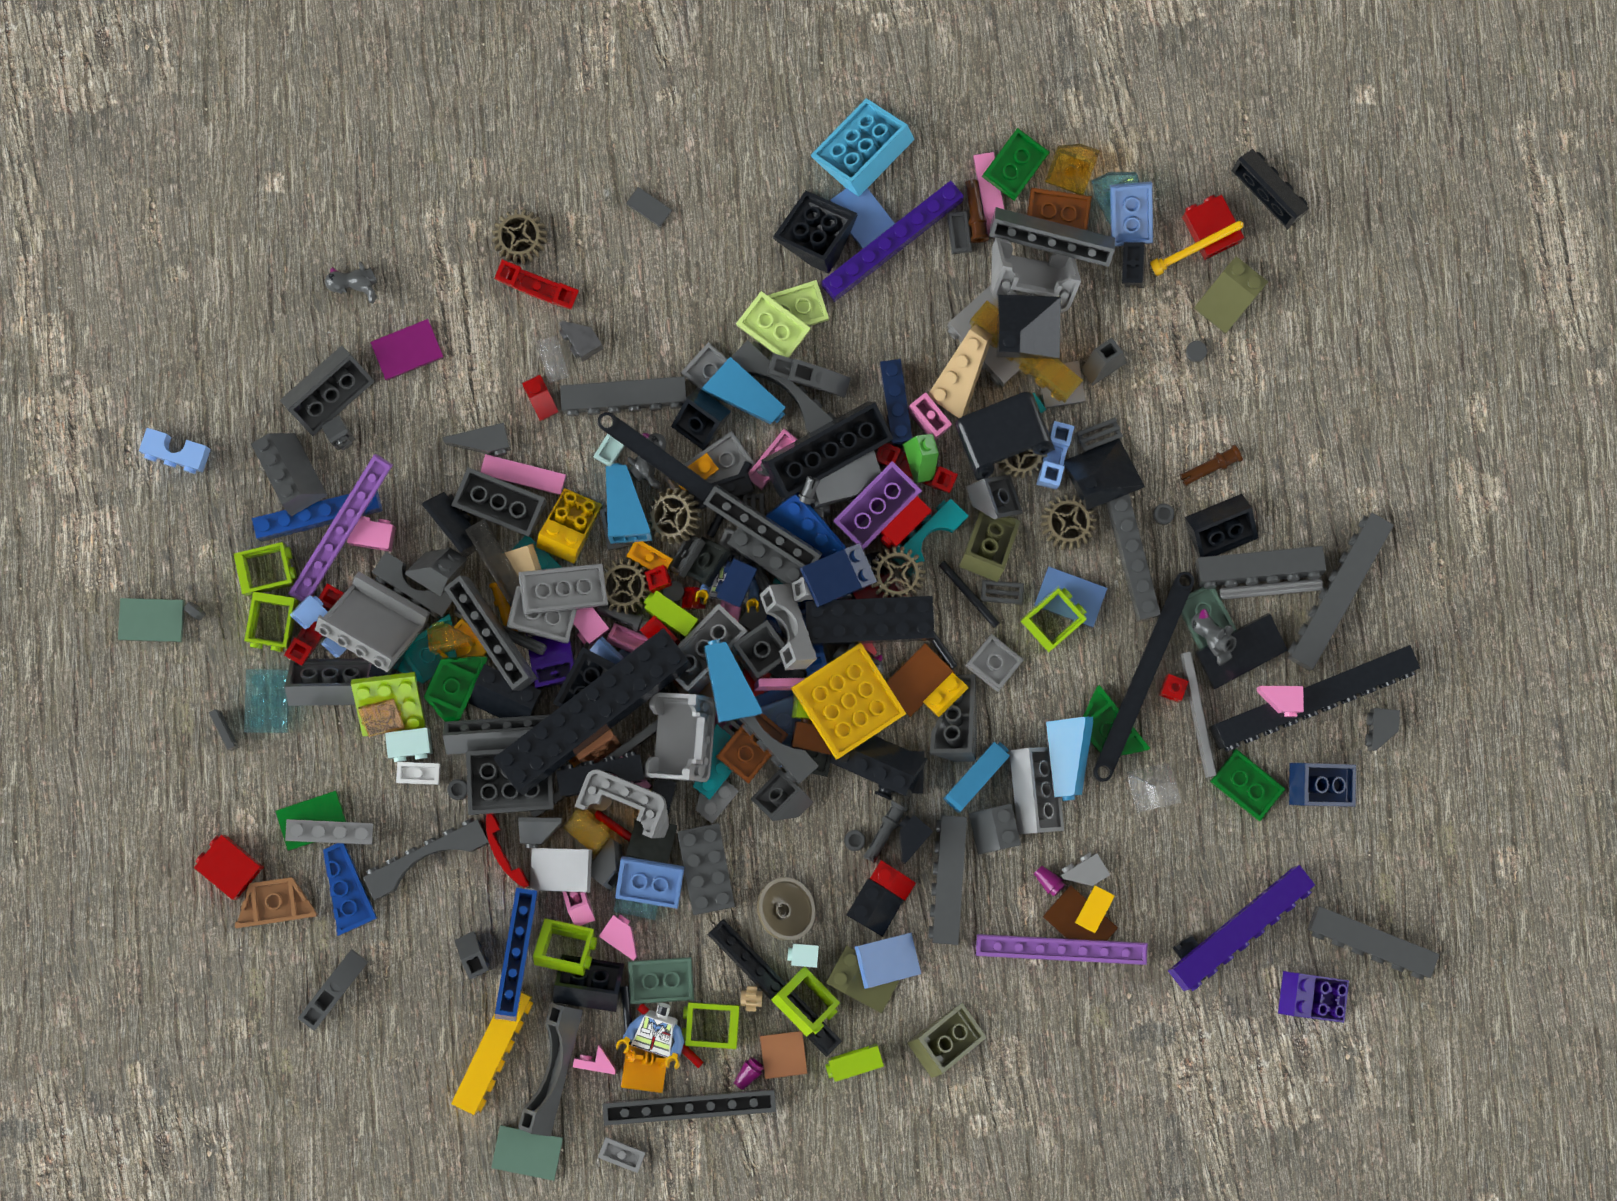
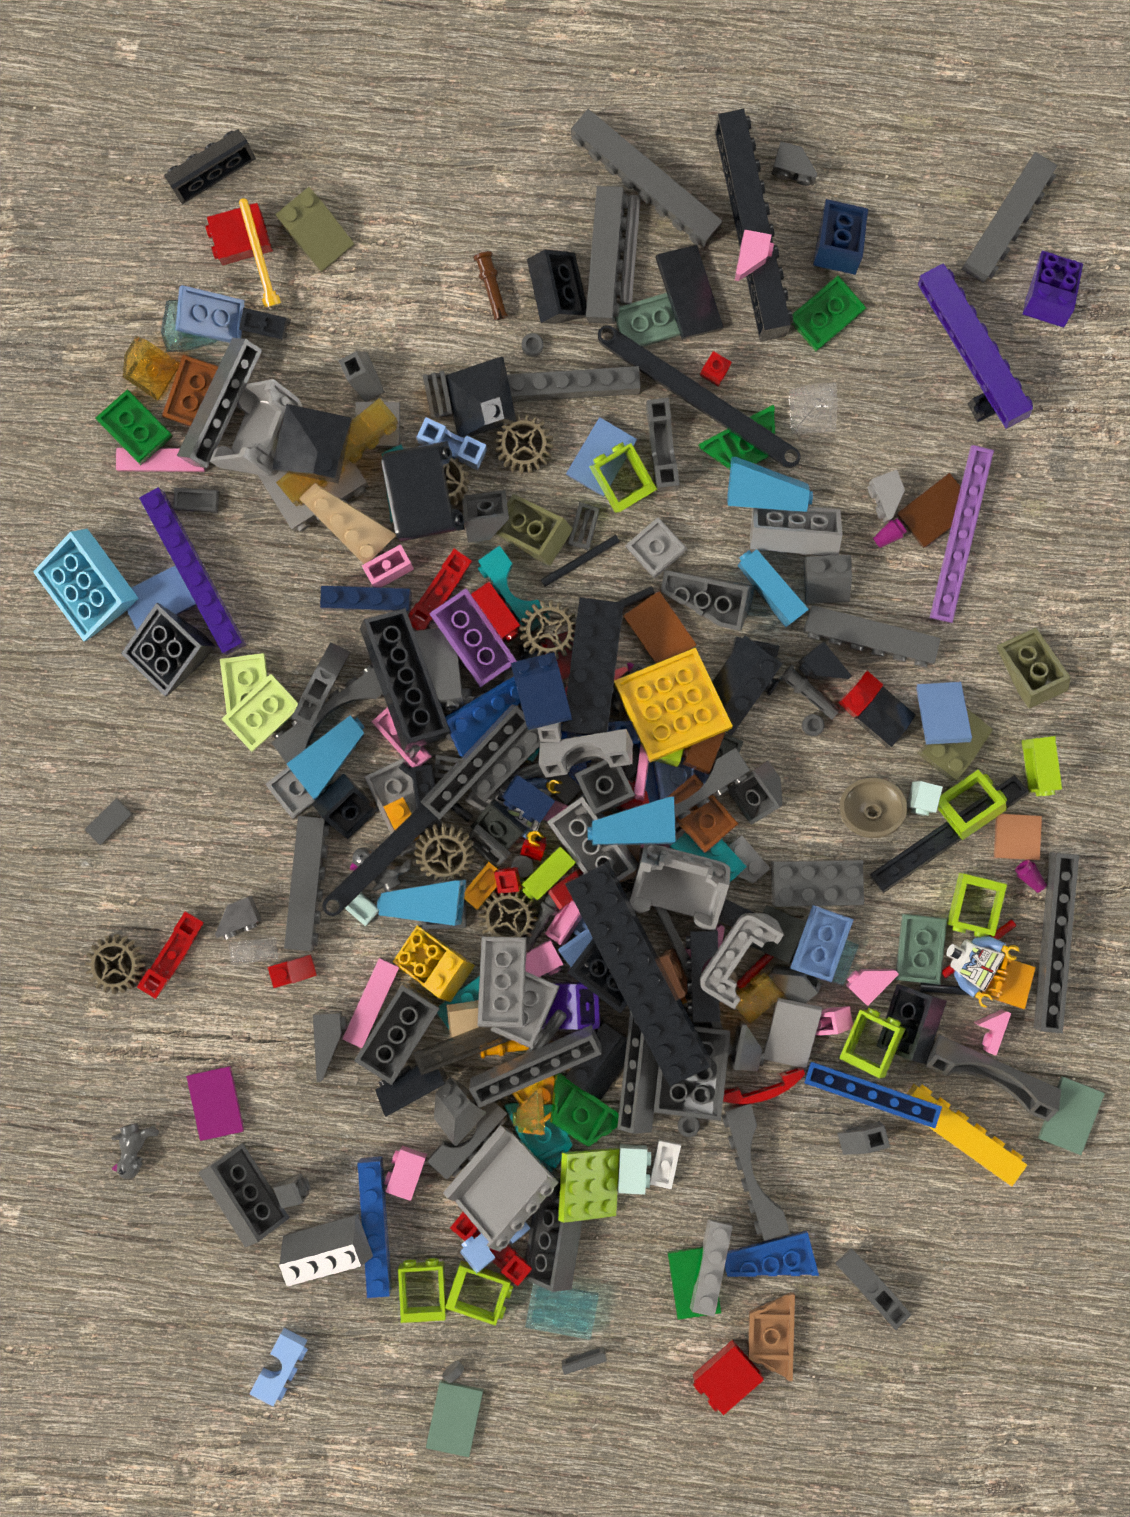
camera: 75 degrees left, 5 degrees up
(341, 528) = (394, 1204): medium lavender tile -> none
(381, 717) = (602, 1194): clear orange piece -> none
(621, 1154) = (1090, 1019): light grey plate -> none
(751, 998) = (956, 859): tan gear -> none
(809, 490) = (445, 705): dark grey pin -> none
(922, 457) = (429, 582): bright green slope -> none
(945, 694) = (681, 604): yellow plate -> none
(977, 220) = (186, 478): reddish brown pin -> none
(1091, 651) = (661, 445): none -> dark grey arch
(1094, 909) = (928, 492): yellow slope -> none
(1196, 351) = (368, 278): dark grey tile -> none
(1198, 715) = (748, 349): light grey tile -> none
(1217, 638) = (675, 311): dark grey animal -> none

